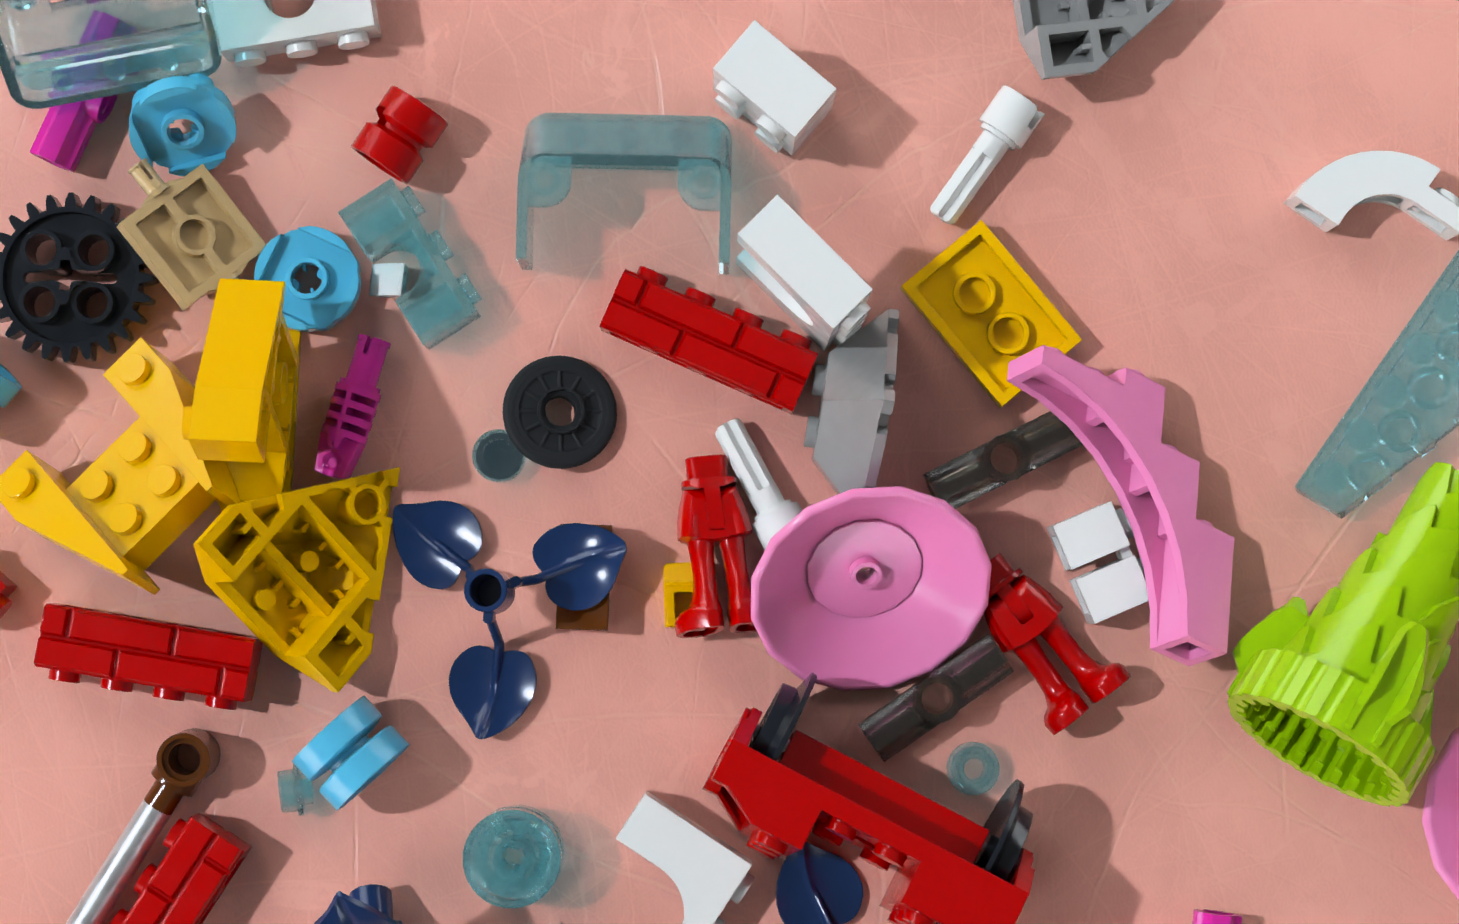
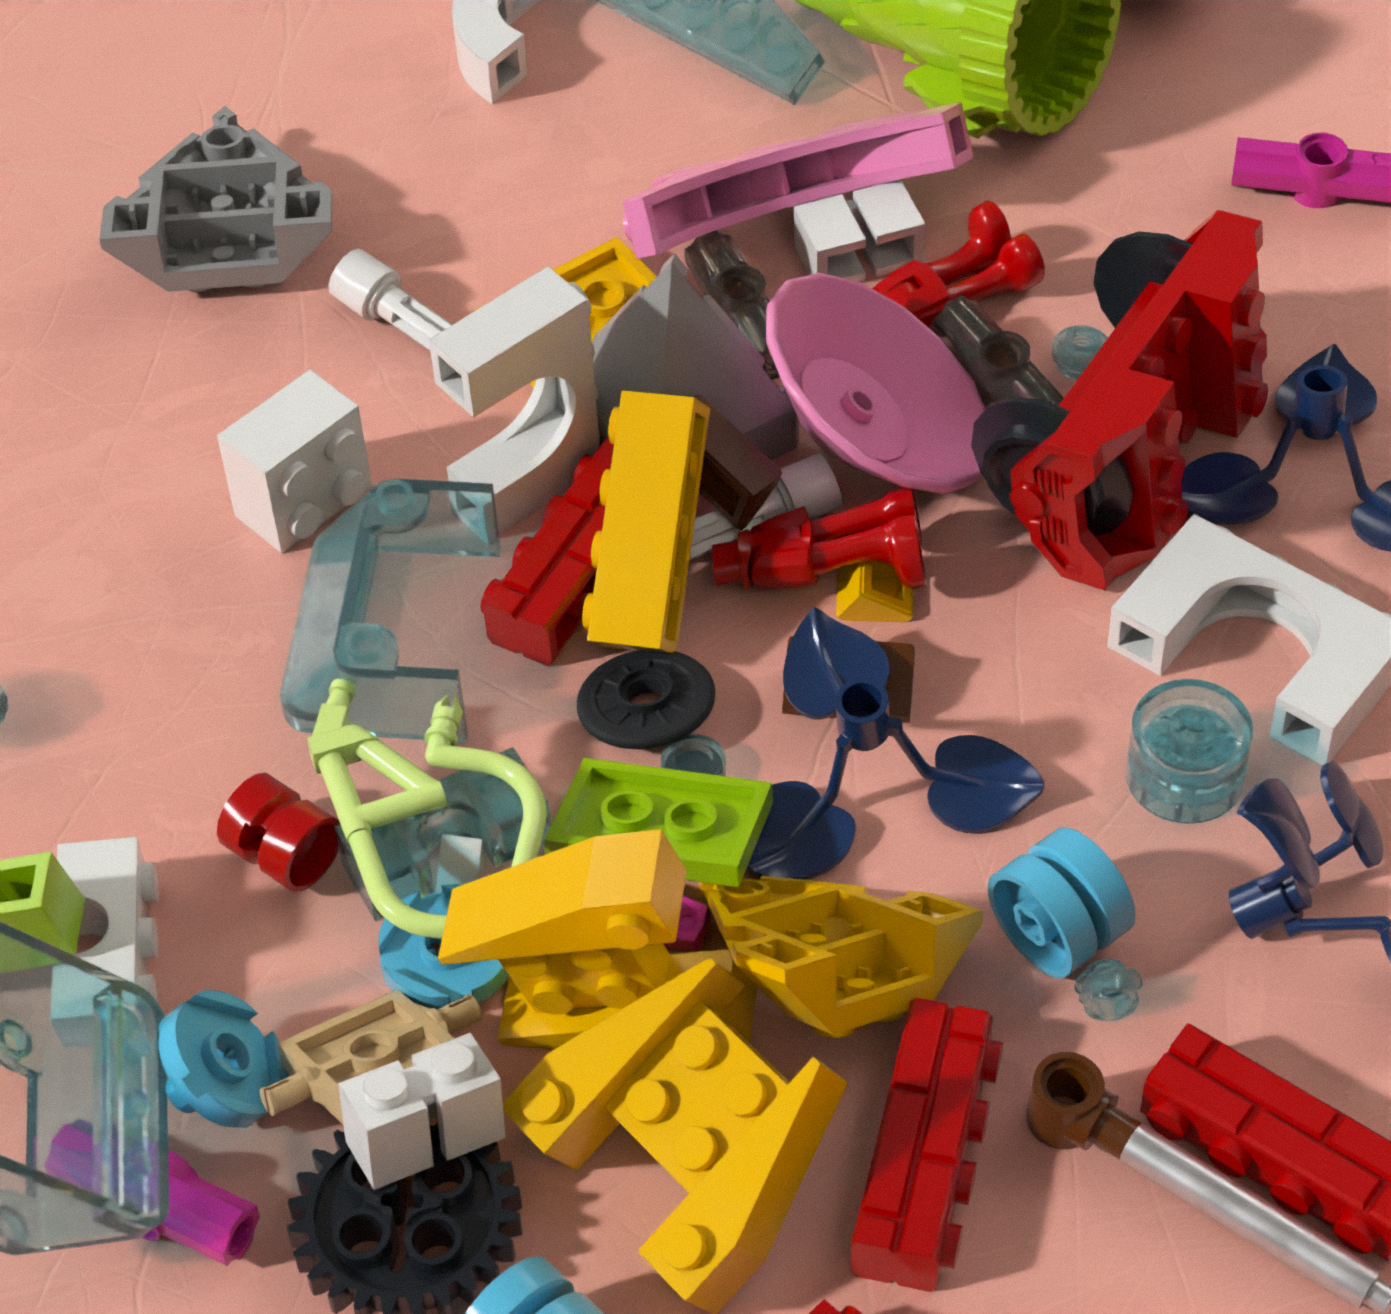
camera: 80 degrees left, 35 degrees down
(131, 298) = (391, 1110): none -> white piece
(422, 434) = (704, 816): none -> lime plate
(456, 165) = (340, 744): none -> yellowish green piece
(694, 398) = (646, 522): none -> yellow brick
(776, 455) = (734, 471): none -> reddish brown slope

